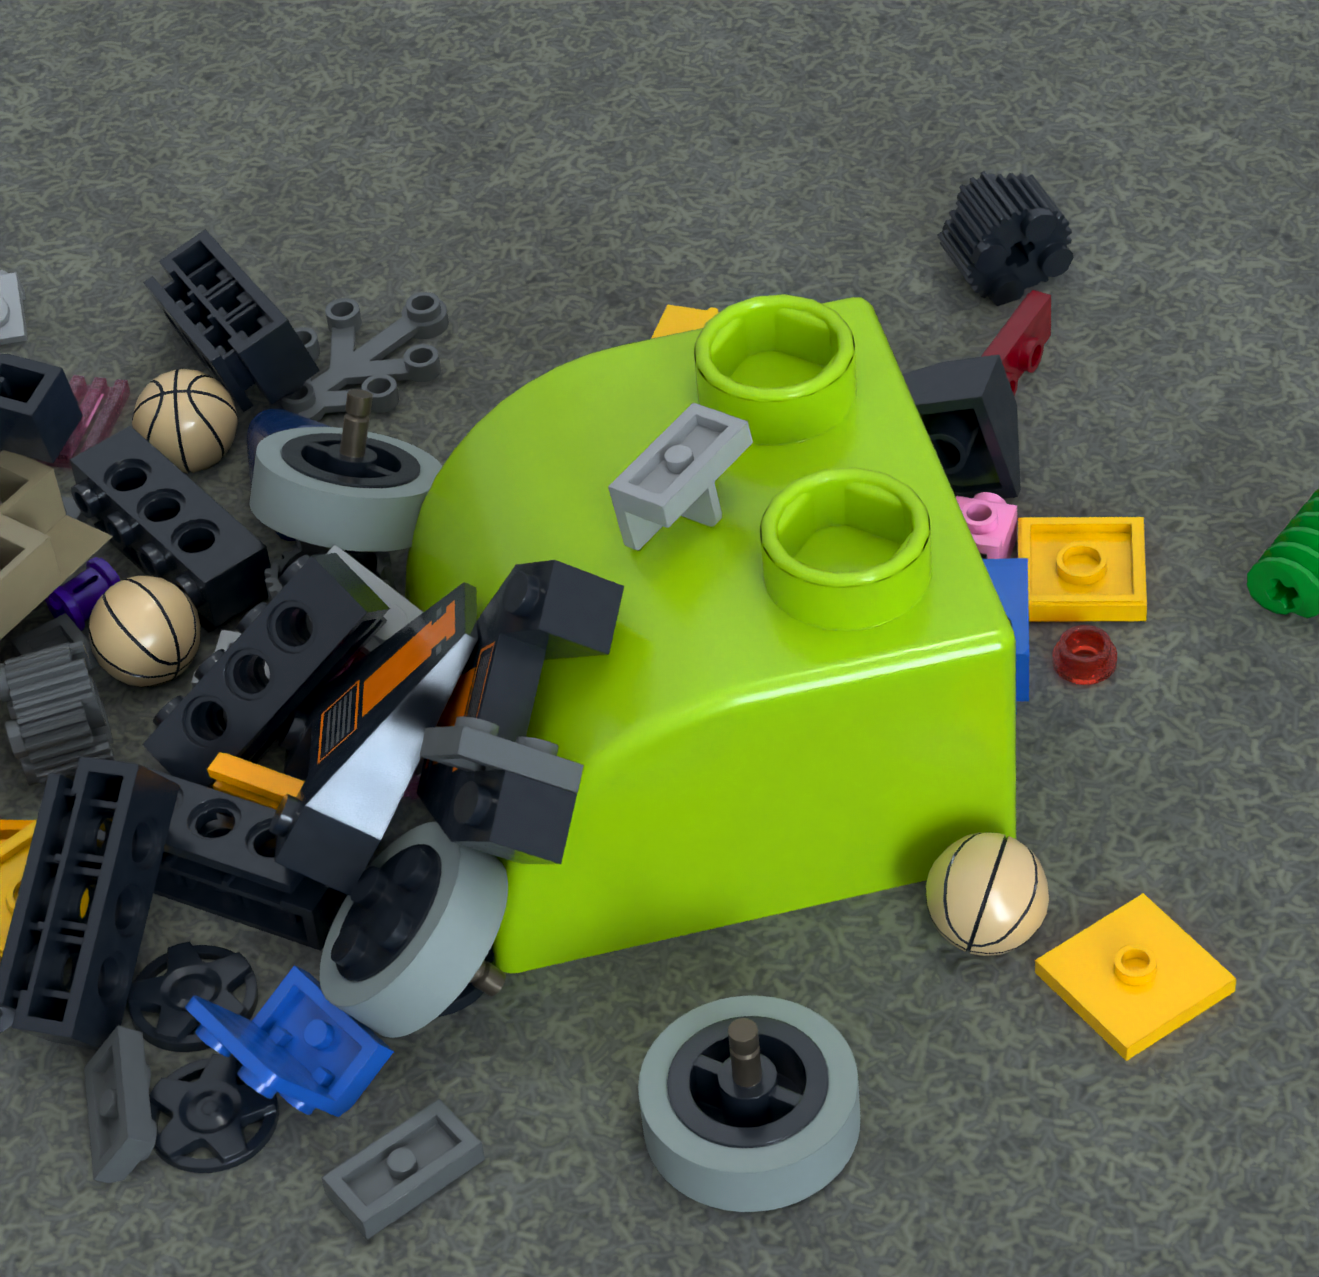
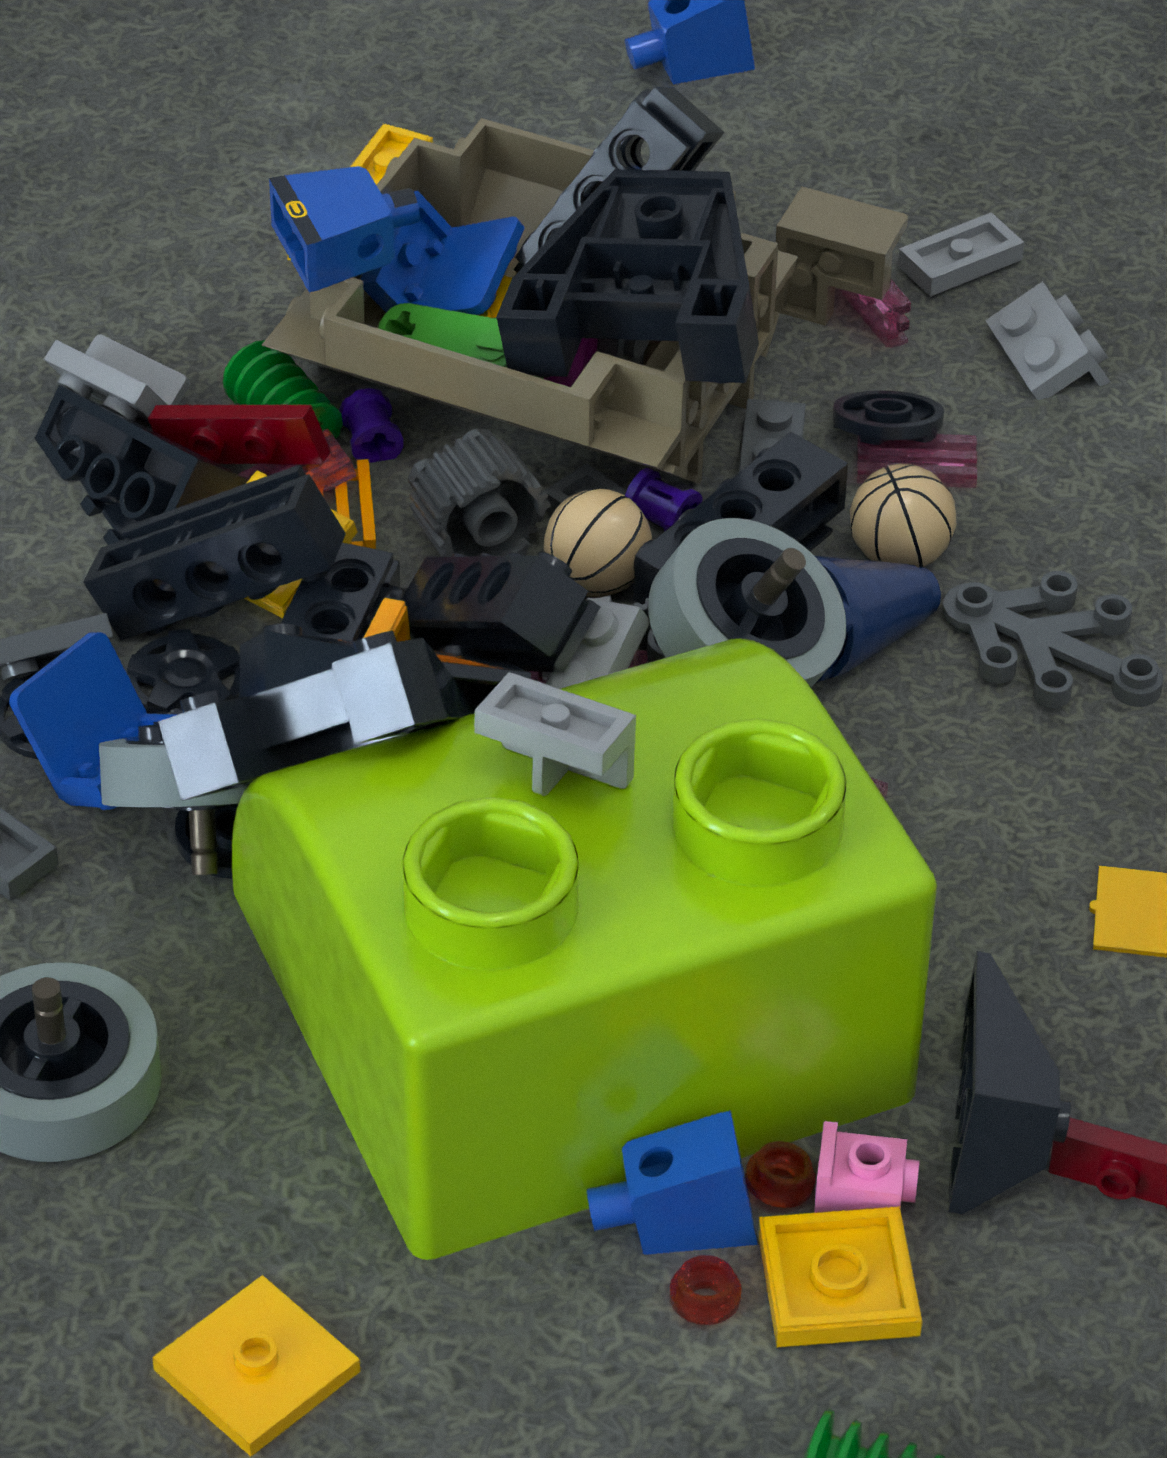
camera: 75 degrees right, 0 degrees up
(230, 323) = (1045, 514): black brick -> none
(475, 747) = (247, 708): dark grey plate -> none
(987, 894) = (317, 1211): tan piece -> none

